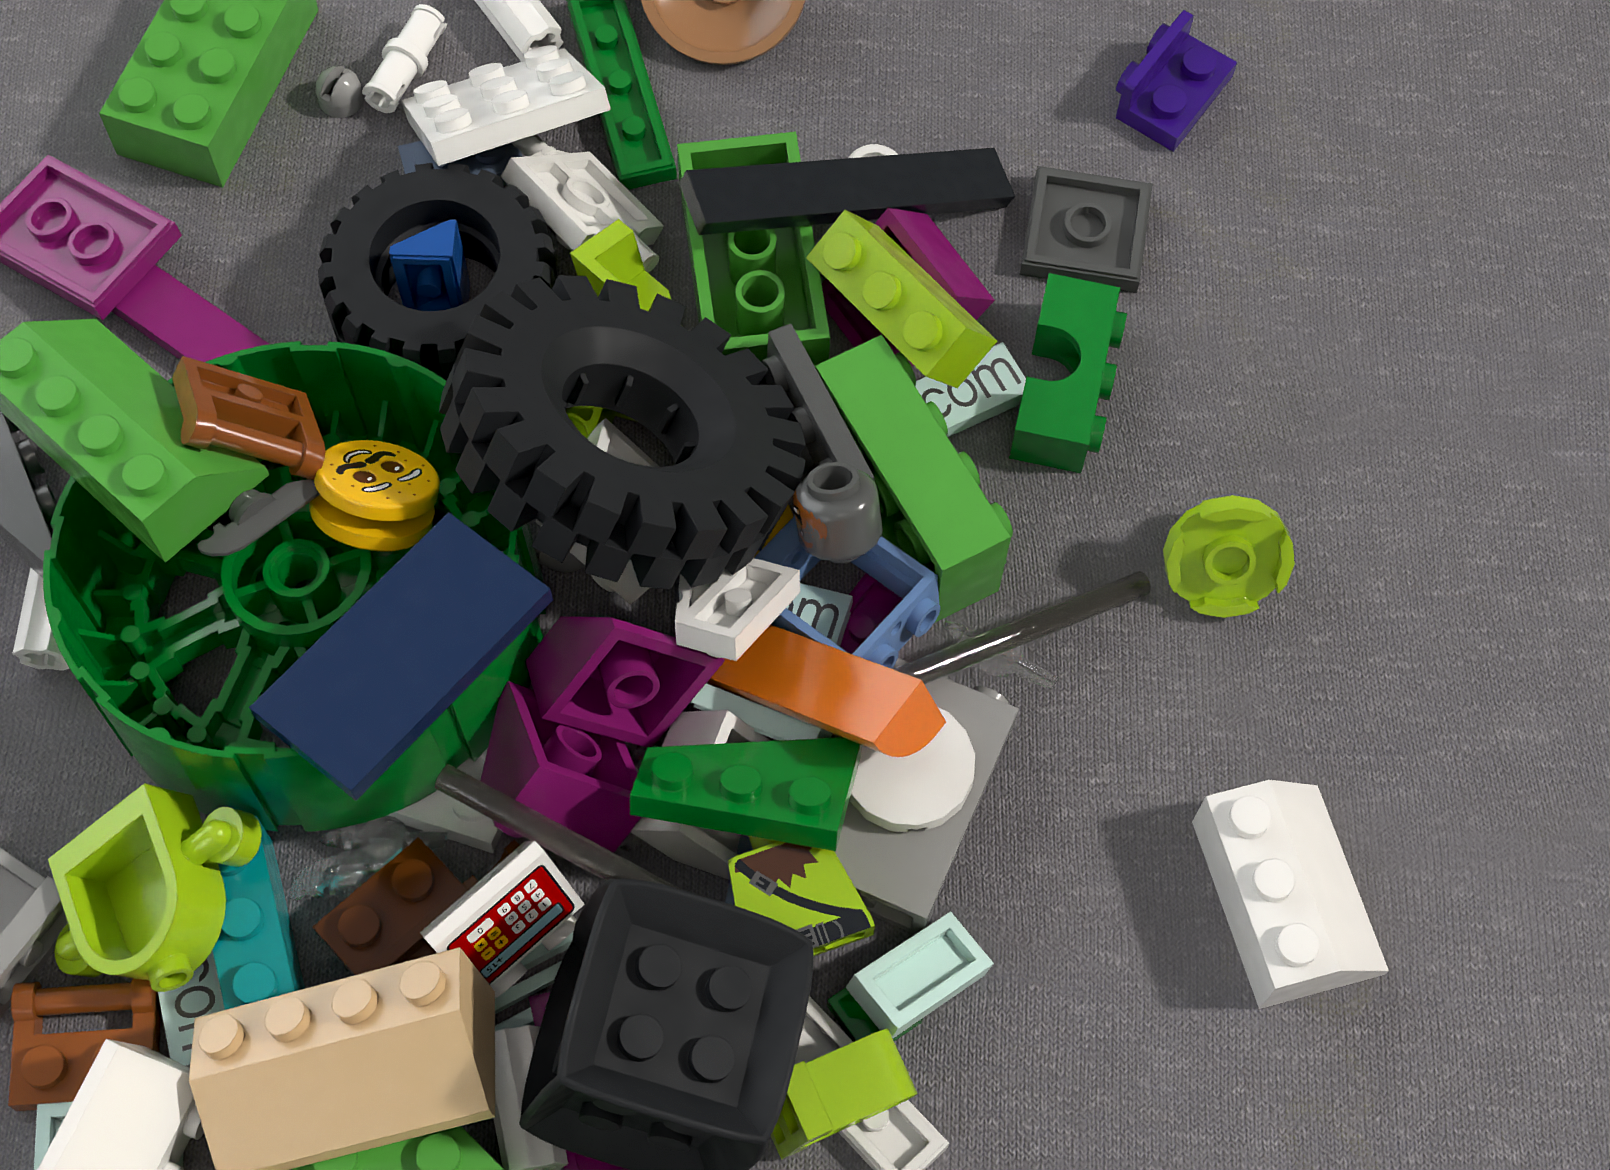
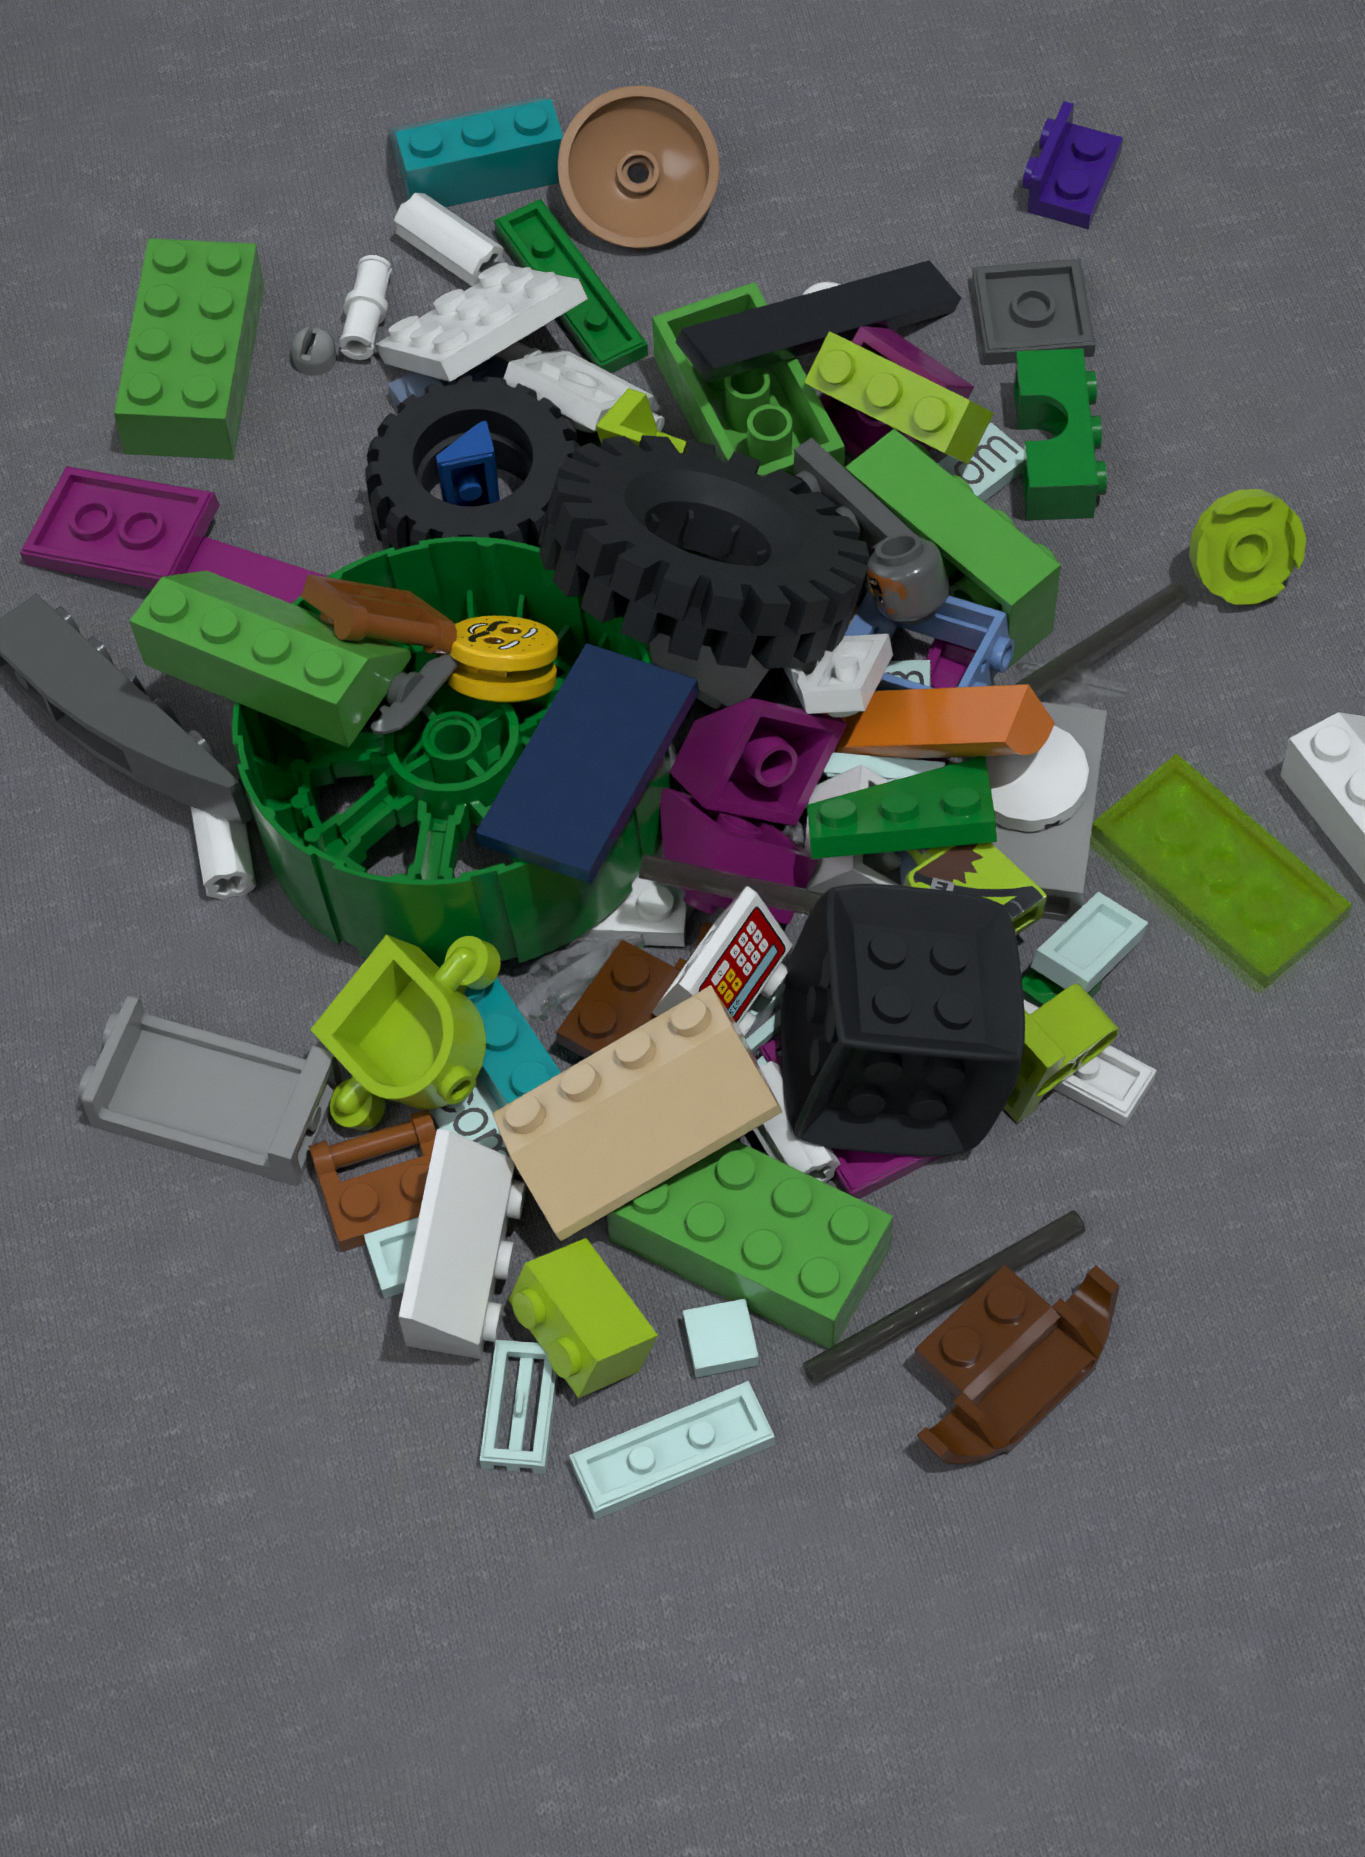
camera: 10 degrees left, 5 degrees down
(1091, 923) = (1221, 870): none -> clear neon green plate

